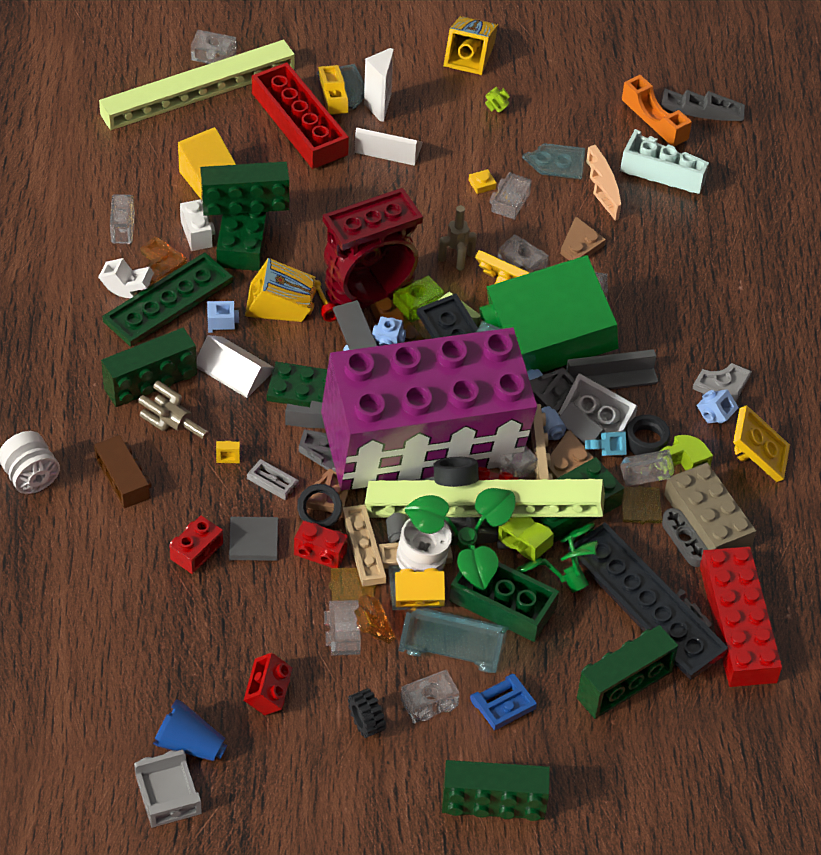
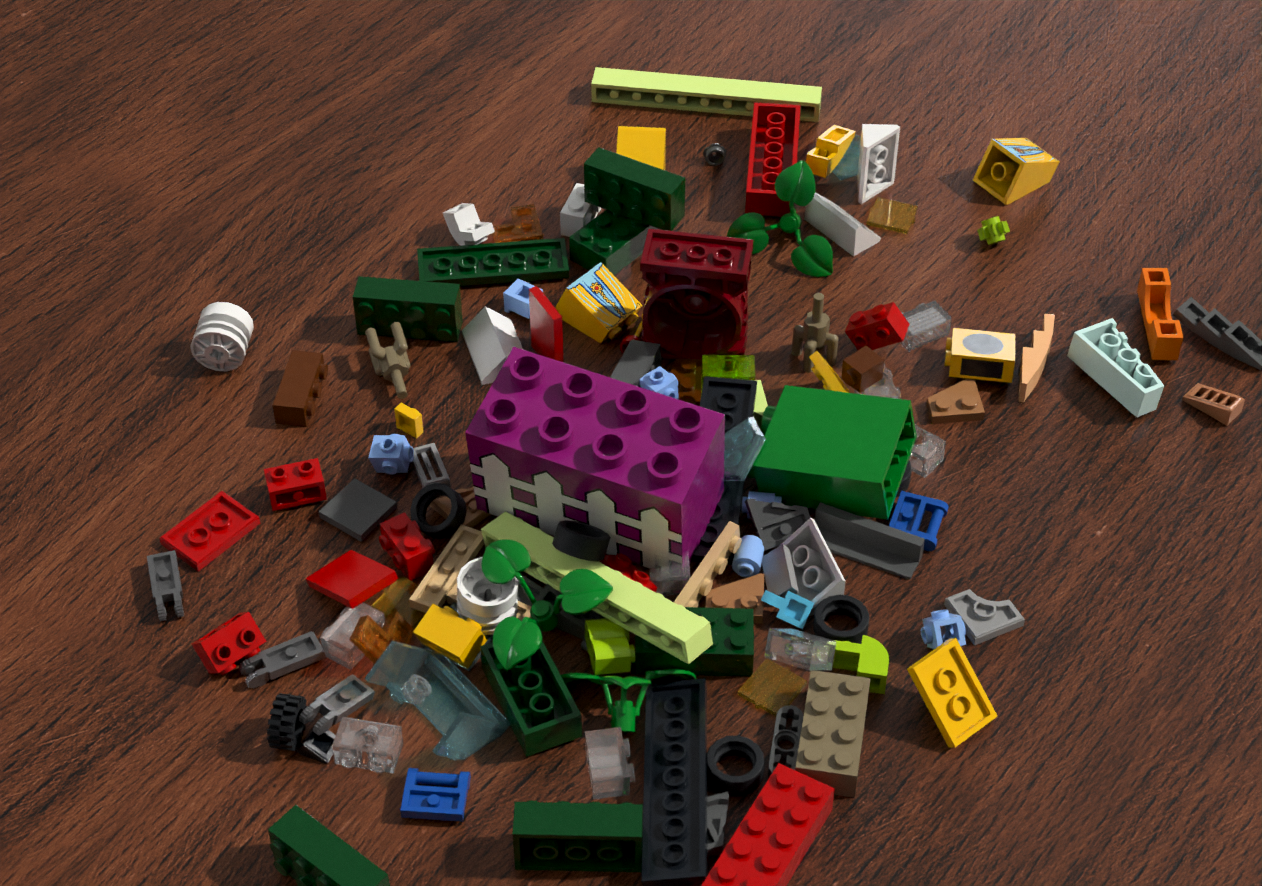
camera: 40 degrees right, 5 degrees down
(122, 219) = (518, 175): clear brick -> none
(160, 614) = (210, 531): none -> red tile
(167, 788) = (55, 685): light grey panel -> none
(172, 670) = (165, 582): none -> flat silver hinge
(189, 732) = (114, 642): blue cone -> none
(212, 47) = (750, 66): clear brick -> none
(244, 483) = (391, 454): none -> light blue brick
(248, 131) = (714, 159): none -> dark grey plate
(275, 331) = (545, 326): none -> red tile
(308, 589) = (351, 579): none -> red tile
(312, 672) = (282, 659): none -> flat silver hinge
(361, 130) = (798, 186): none -> green plant
(385, 679) = (337, 703): none -> flat silver hinge
(394, 715) = (317, 746): none -> black slope
(413, 120) = (892, 215): none -> clear yellow piece
(427, 639) = (416, 689): none -> clear bush
(482, 181) = (907, 298): yellow plate -> none
(492, 212) = (877, 327): none -> red brick
(515, 248) = (862, 369): none -> reddish brown brick
(557, 160) = (1007, 315): clear light blue tile -> none
(571, 198) = (980, 355): none -> brick
(592, 614) = (607, 763): none -> clear brick
(626, 339) = (910, 512): none -> blue plate
(675, 555) = (735, 784): none -> black tyre
(742, 158) = (1220, 406): none -> nougat slope

